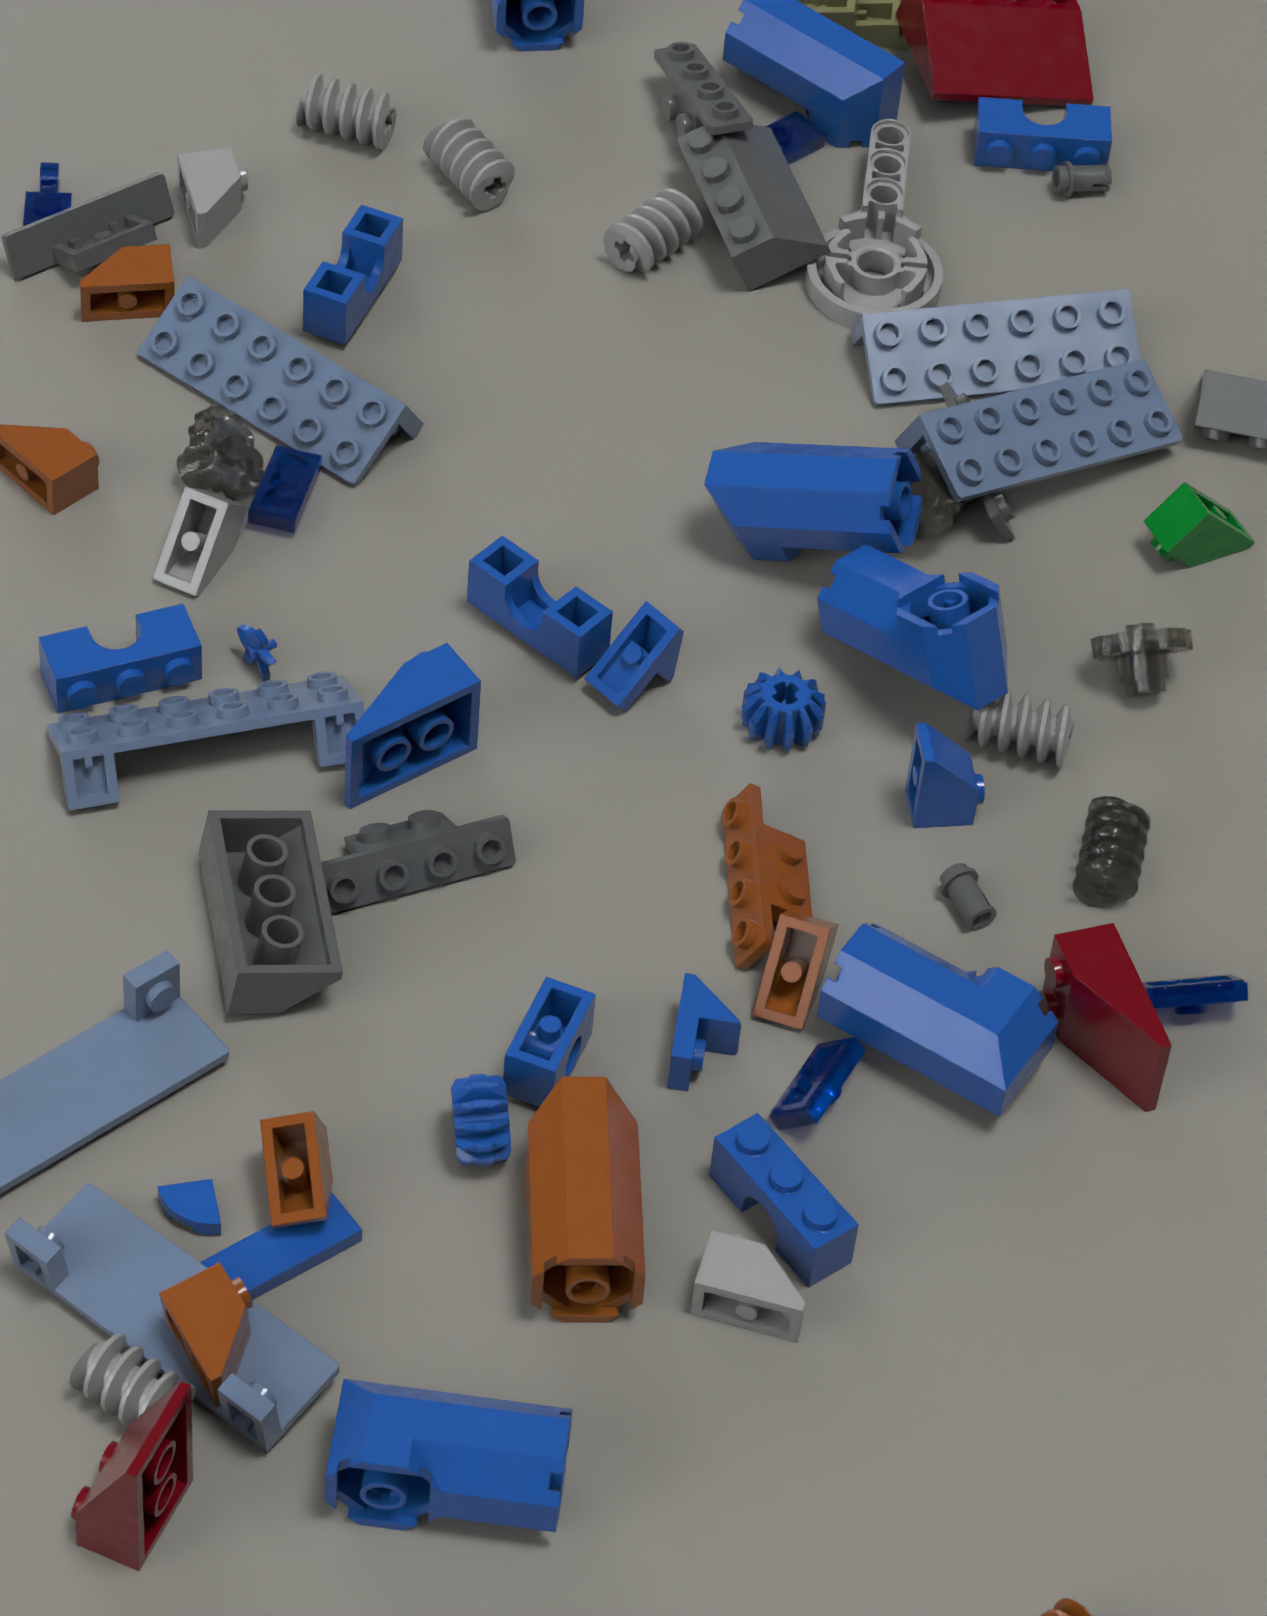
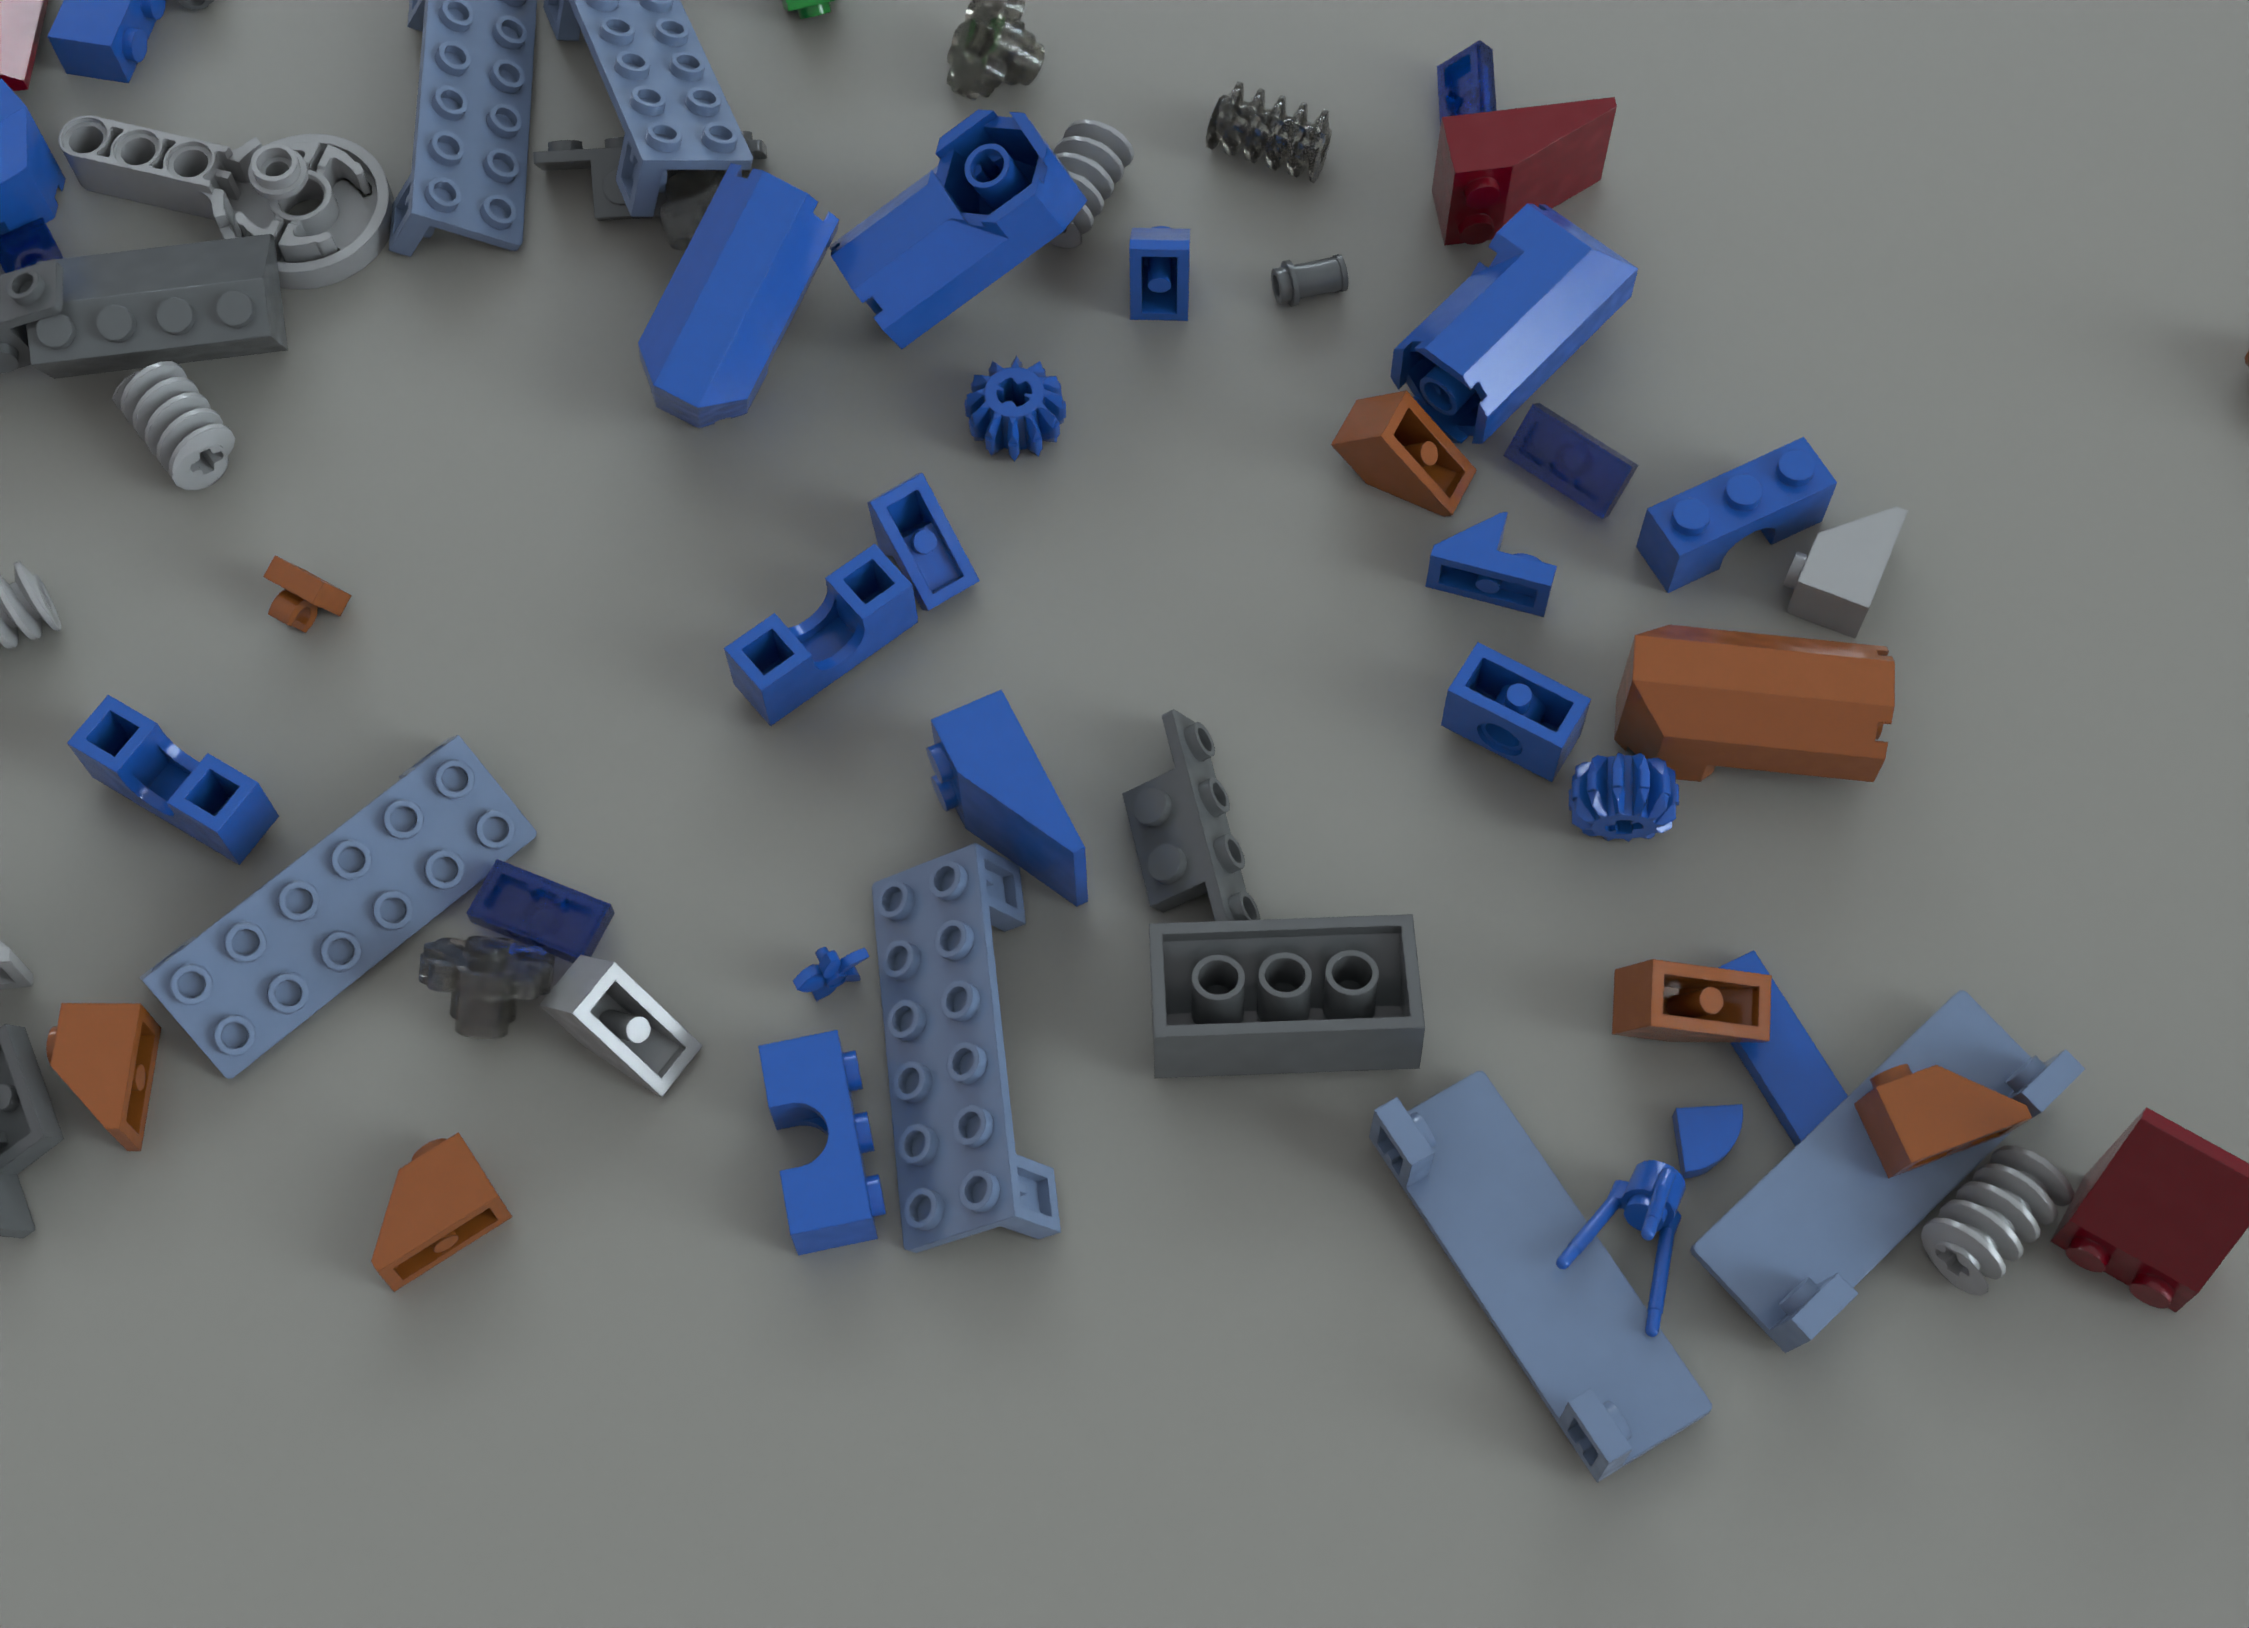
camera: 75 degrees left, 15 degrees up
(127, 1158) = (1649, 1206): none -> blue plant
(446, 1455) = (2107, 879): blue brick -> none
(528, 322) = (302, 595): none -> dark orange tile
(764, 875) = (1265, 472): dark orange bracket -> none
(883, 237) = (275, 160): none -> light grey plate

